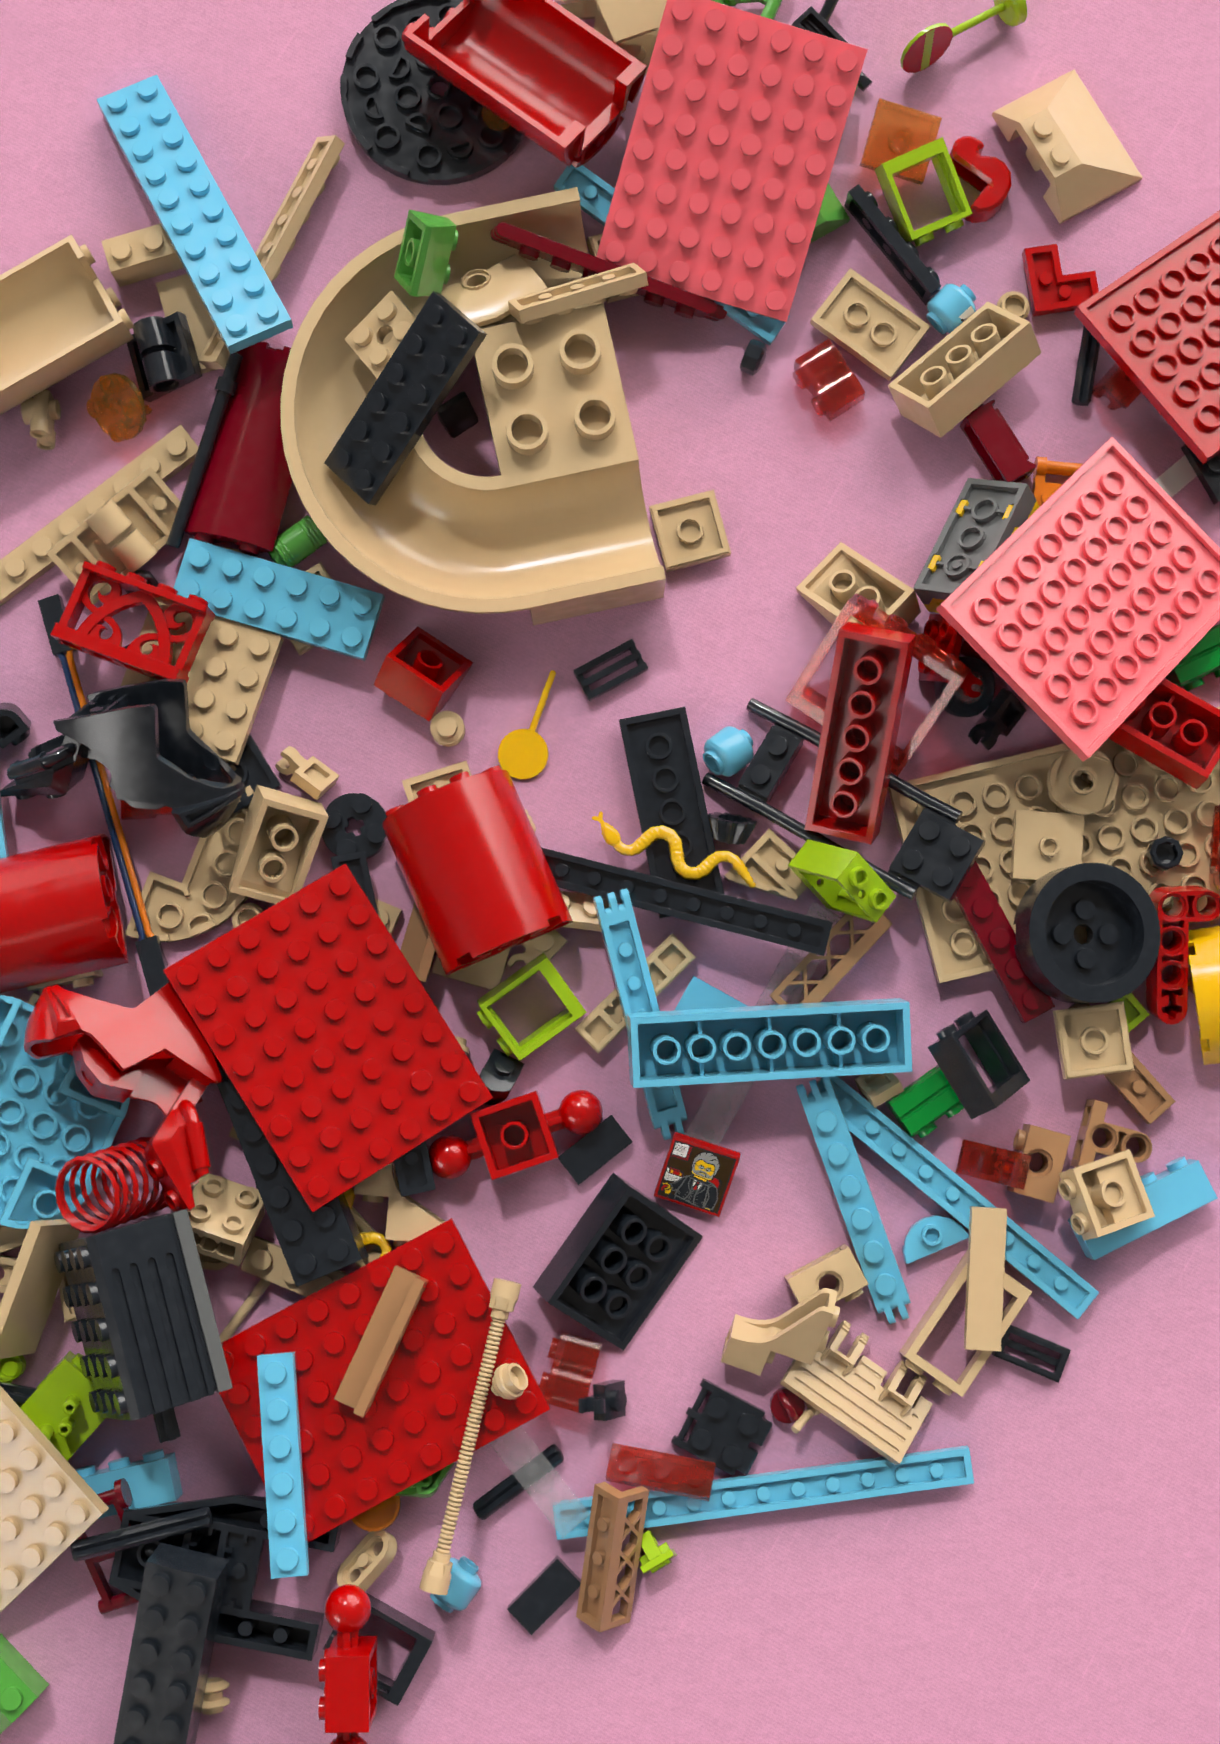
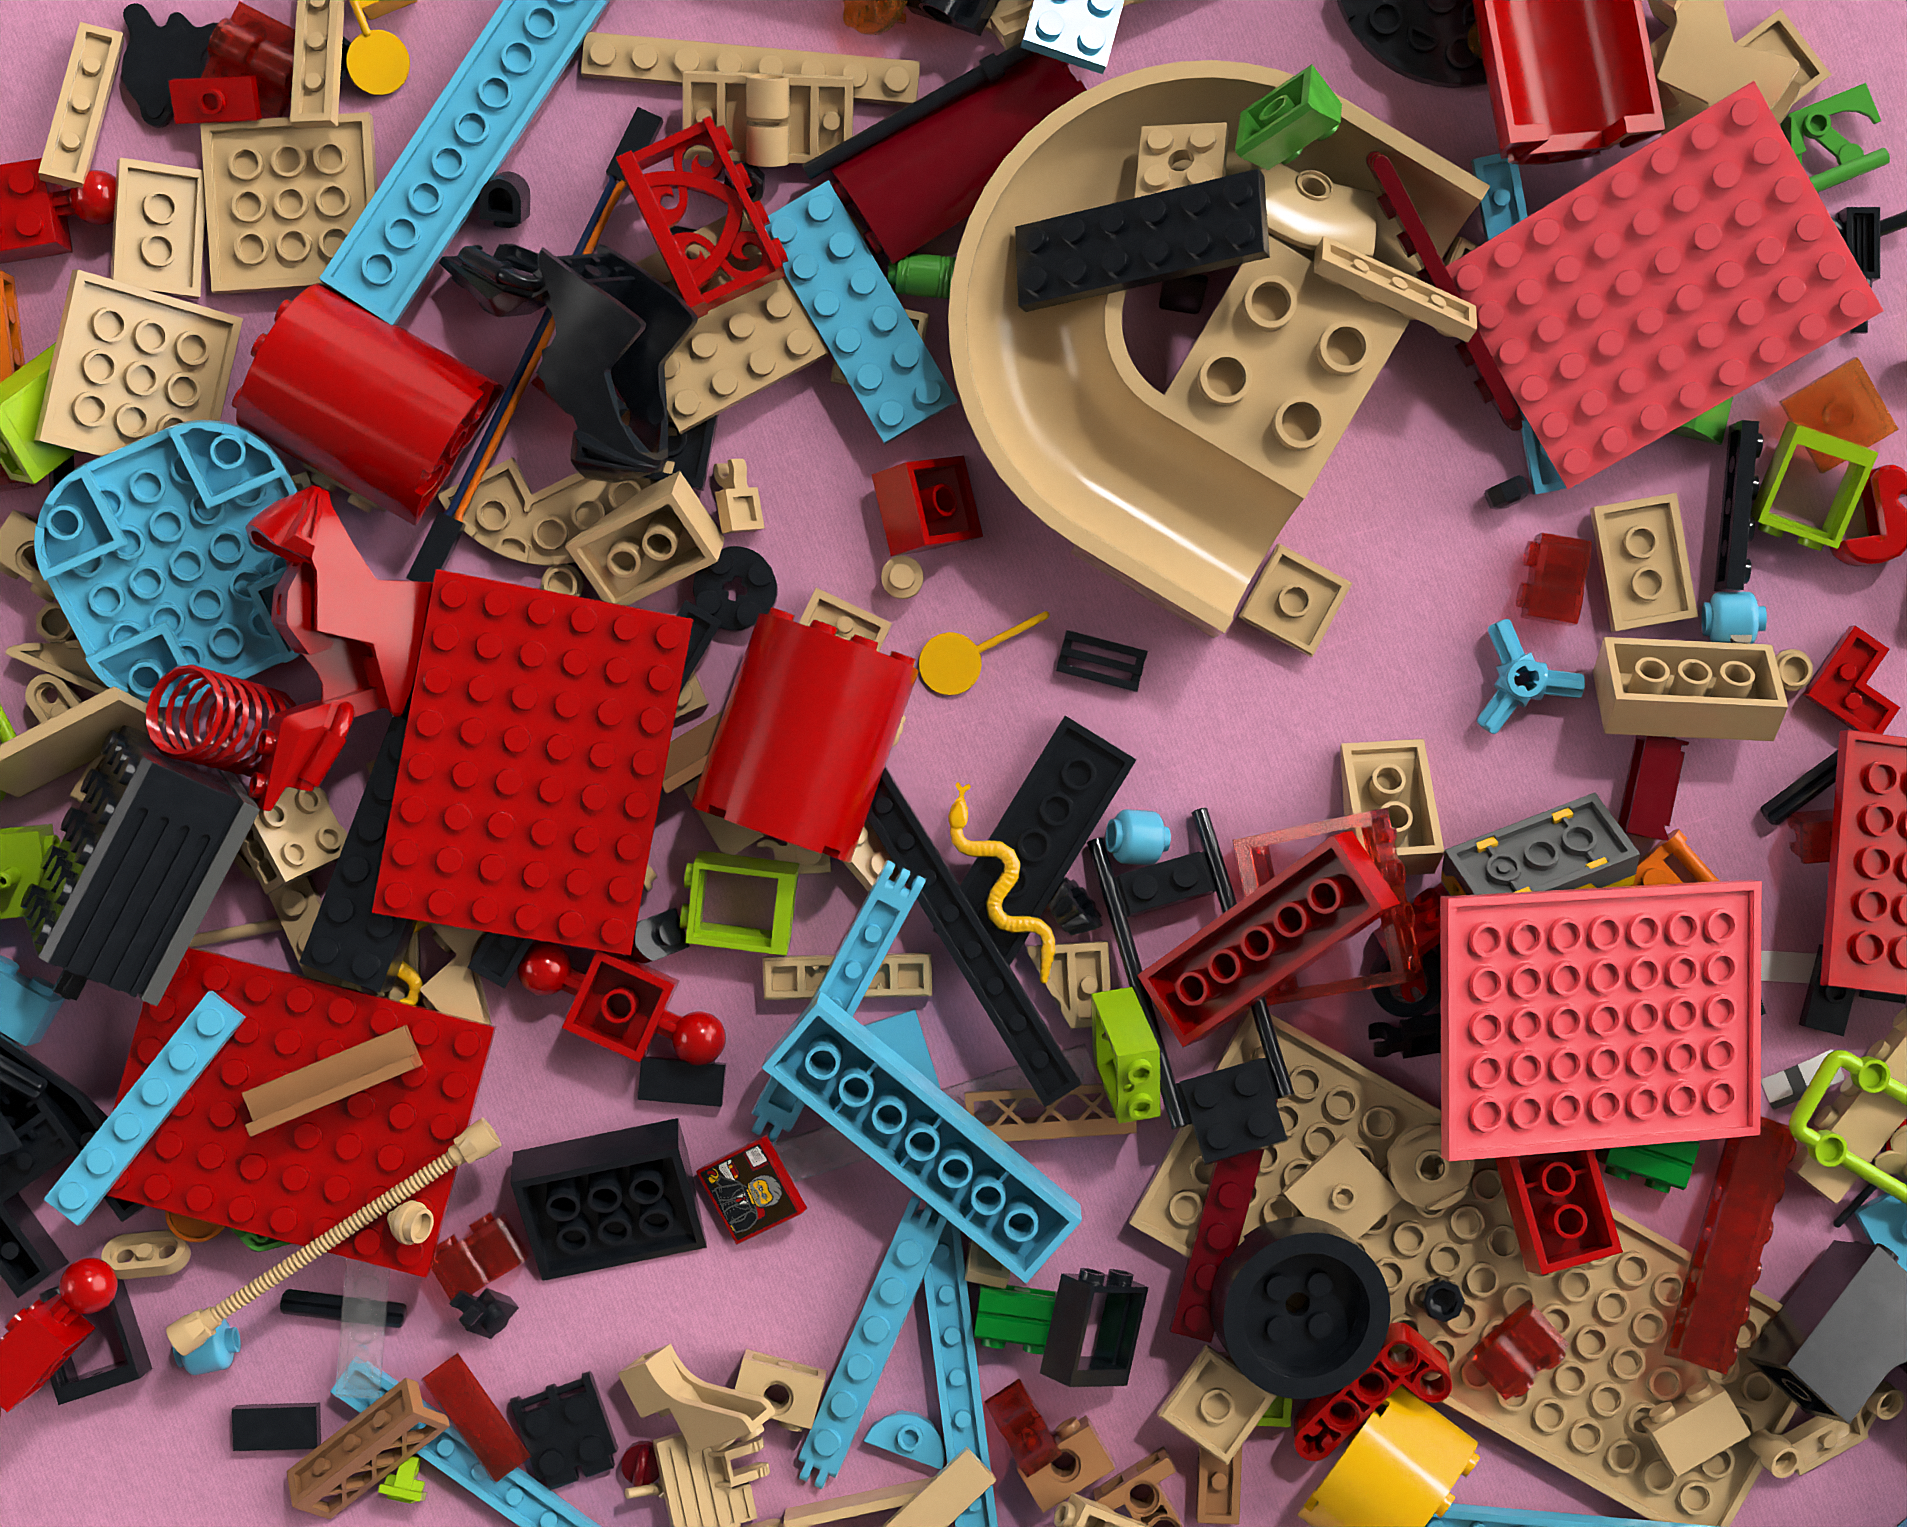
camera: 45 degrees right, 5 degrees up
(851, 448) = (1541, 679): none -> medium azure bush

